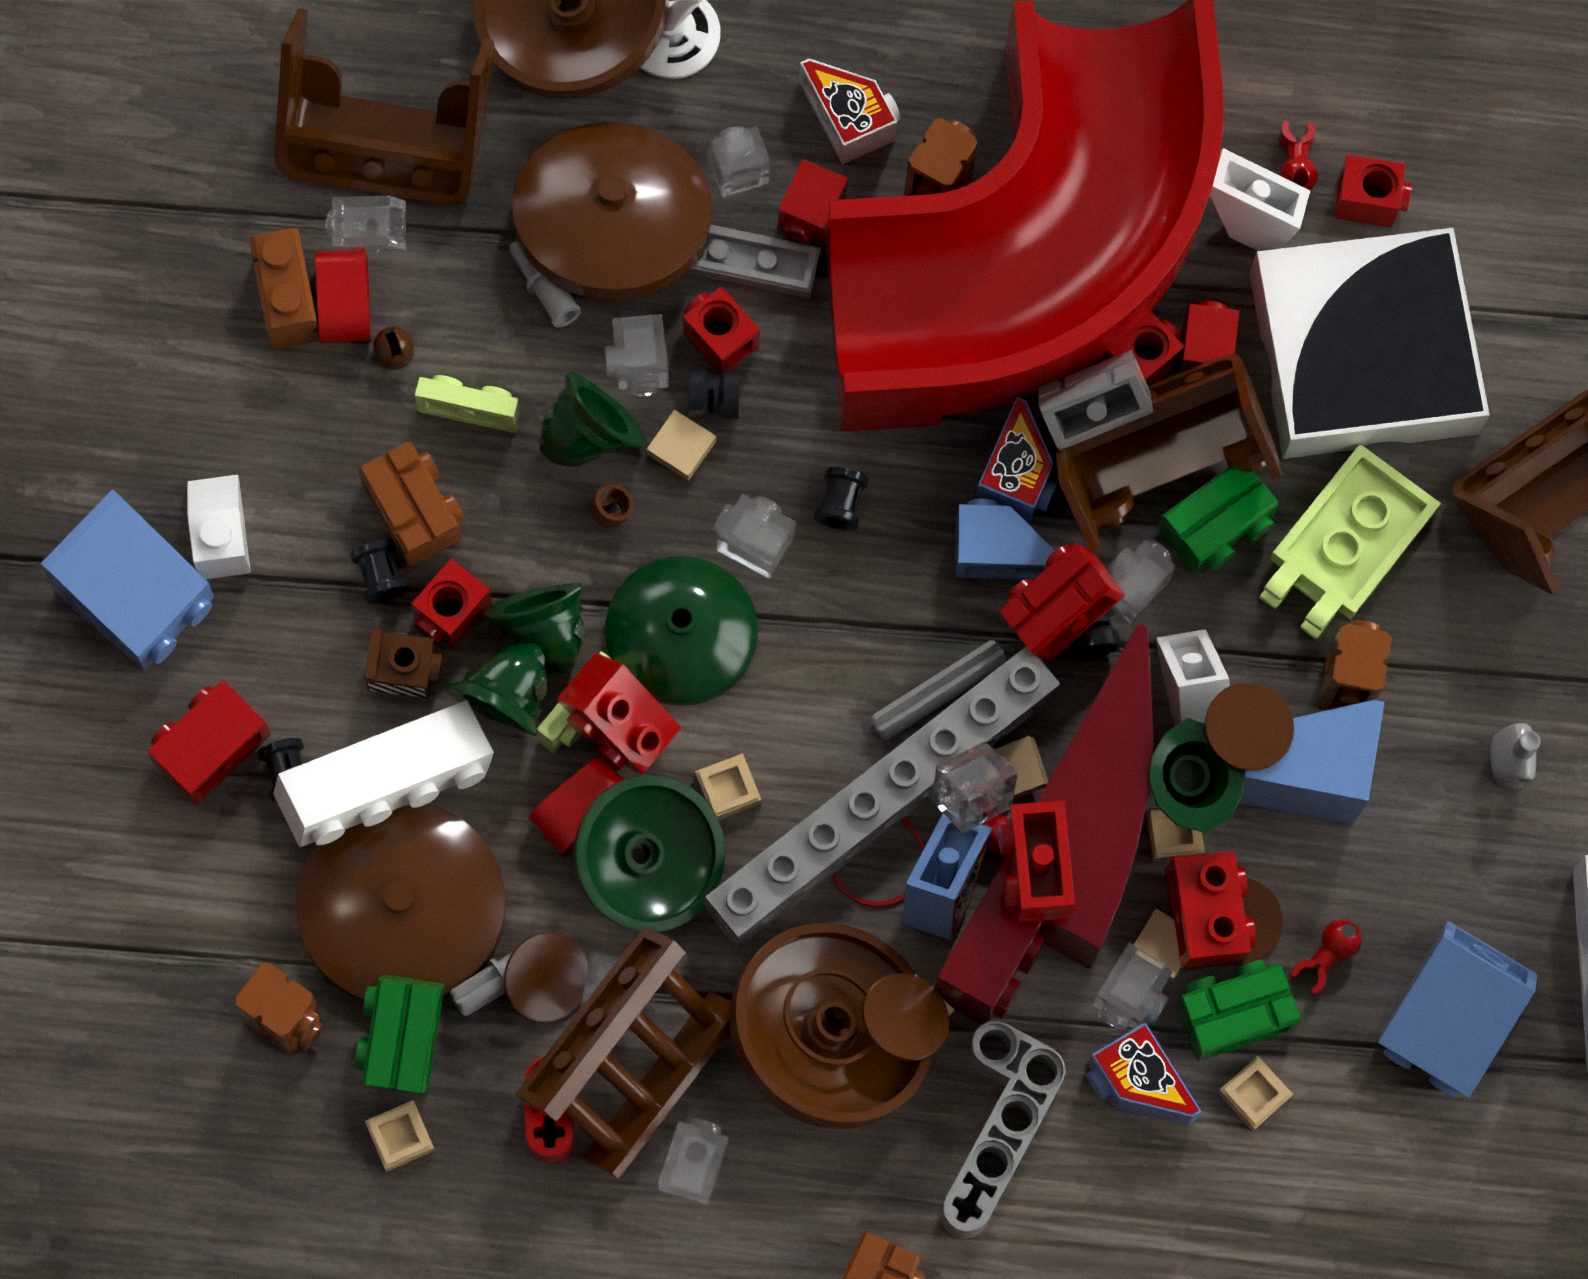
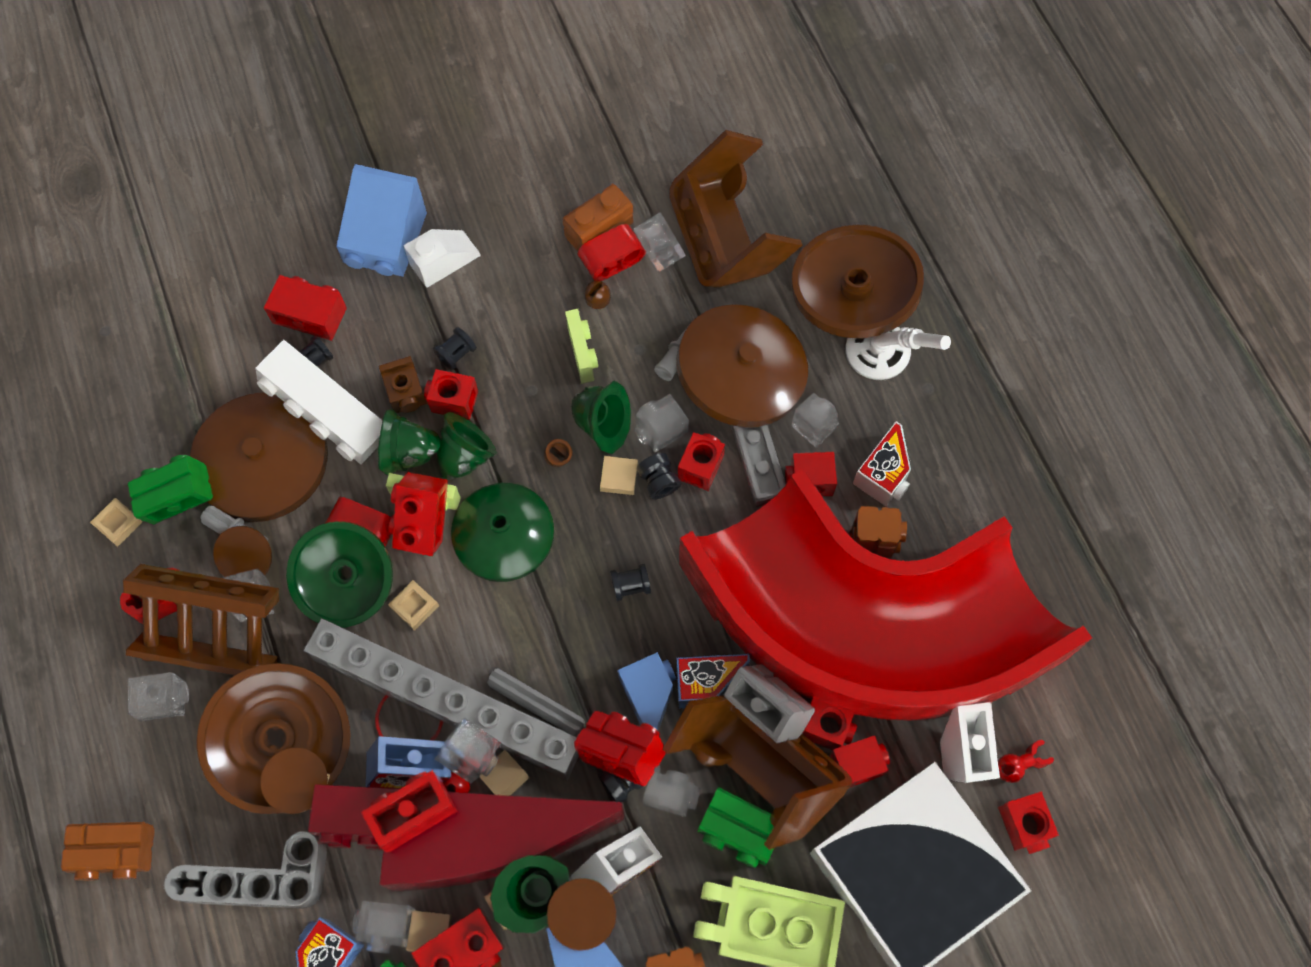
camera: 70 degrees right, 5 degrees down
(280, 1010) = (154, 415): dark orange brick -> none
(411, 503) = (503, 344): dark orange brick -> none
(754, 533) = (581, 542): clear brick -> none

